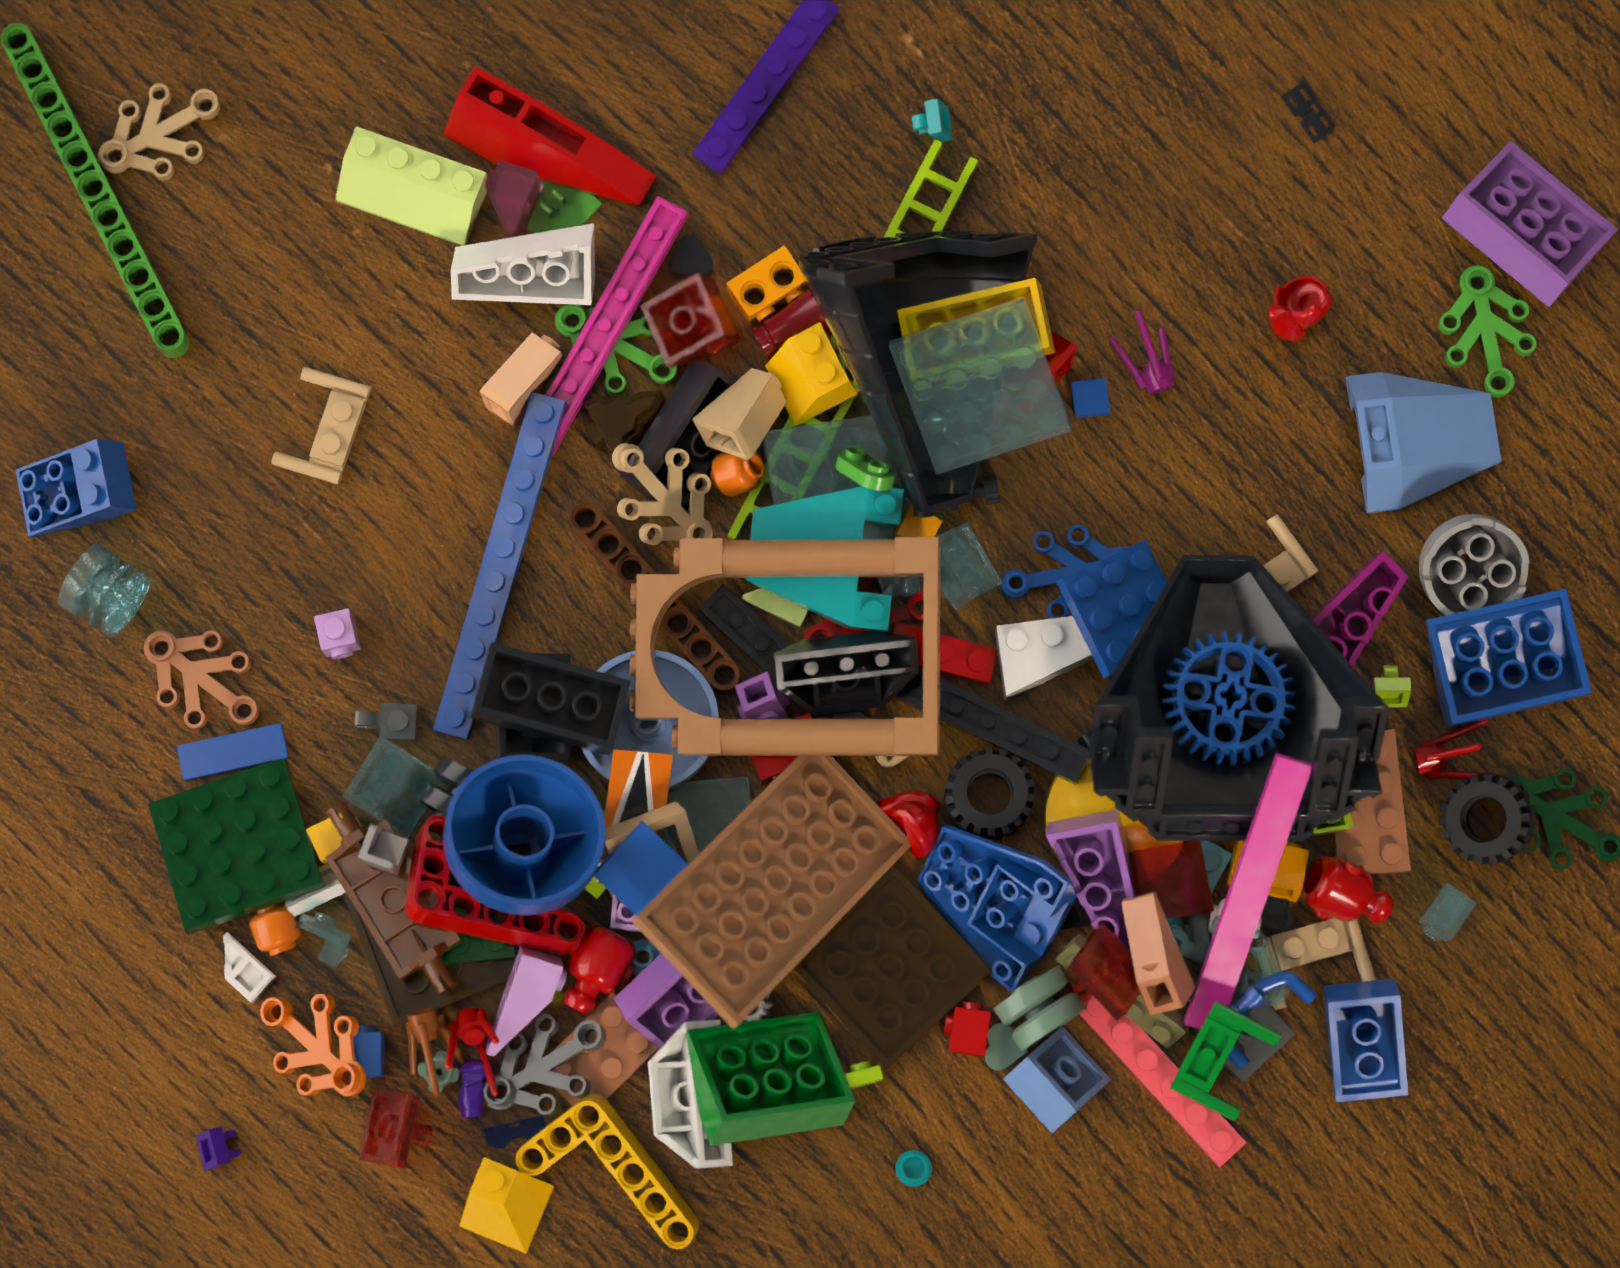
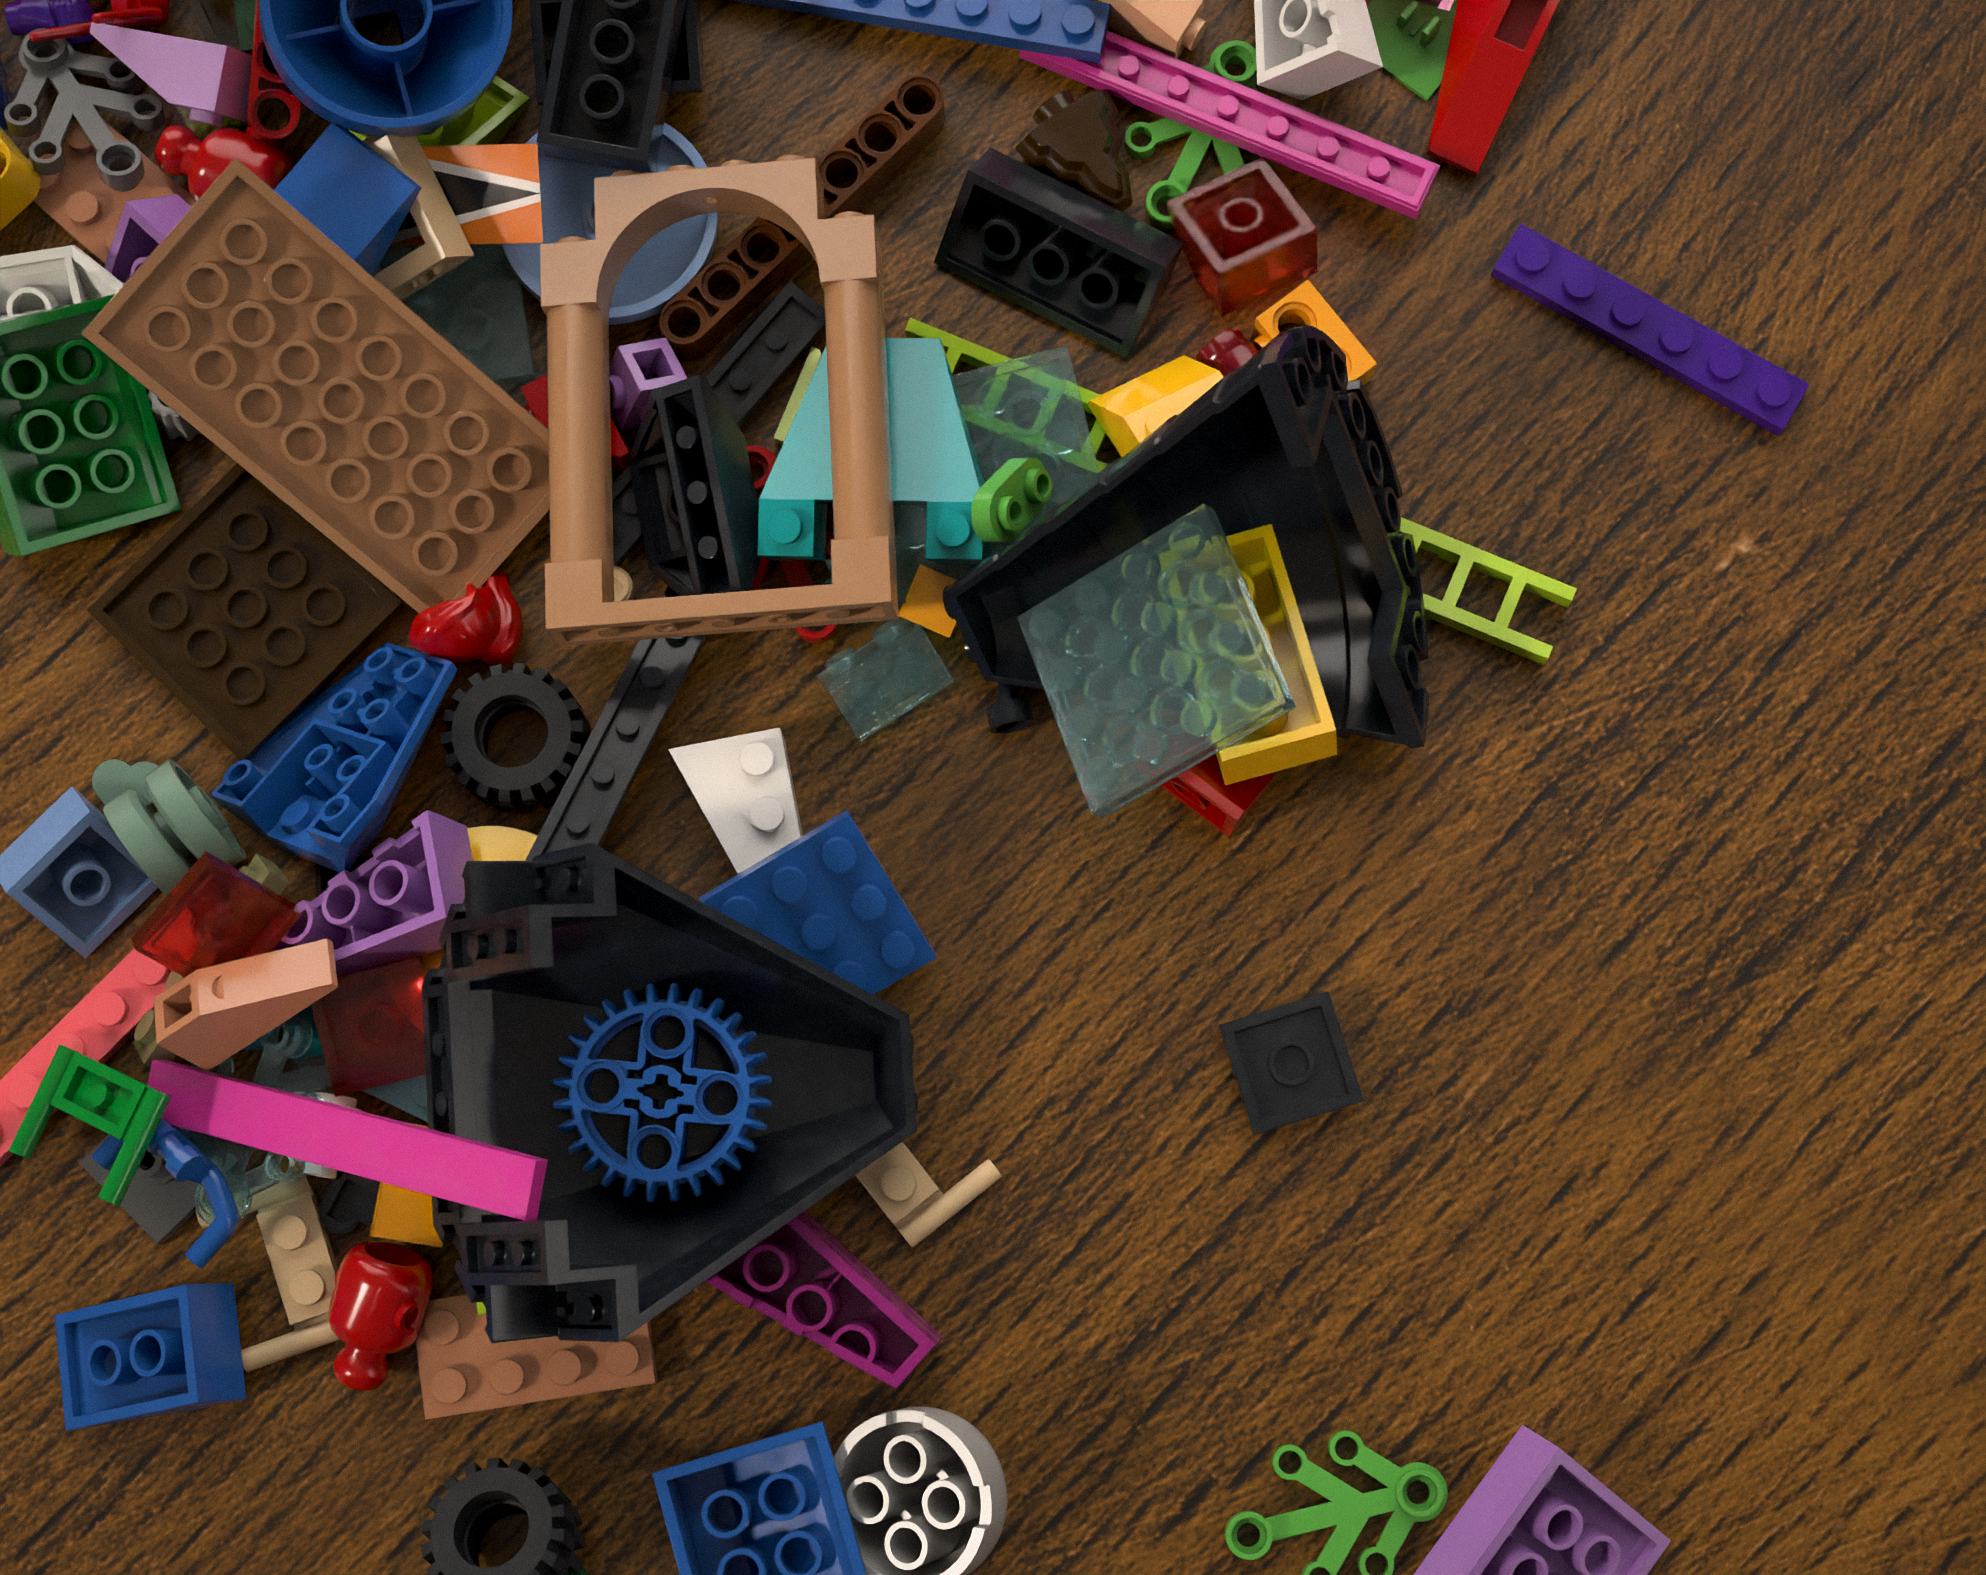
camera: 85 degrees right, 0 degrees up
(668, 499) = (947, 213): tan plant -> none
(691, 258) = (1348, 236): black tile -> none
(736, 475) = (1009, 320): orange head -> none
(742, 414) = (1096, 316): tan slope -> none
(863, 1074) = (77, 576): lime plate -> none
(935, 121) = (1607, 590): teal tile -> none
(957, 656) = (738, 676): red plate -> none
(968, 1029) = (149, 729): red brick -> none
(1064, 557) = (895, 853): blue plant -> none
(1090, 398) = (1172, 864): blue tile -> none
(1156, 375) = (1217, 965): magenta plant -> none
(1218, 335) = (1290, 1063): none -> black plate
(1298, 306) = (1348, 1190): red hair -> none
(1304, 107) = (1693, 1188): black piece -> none
(1391, 689) = (717, 1372): lime tile -> none
(1419, 437) = (1146, 1402): medium blue wedge -> none
(1432, 758) = (608, 1447): red plant -> none
(1446, 913) = (350, 1479): clear light blue brick -> none

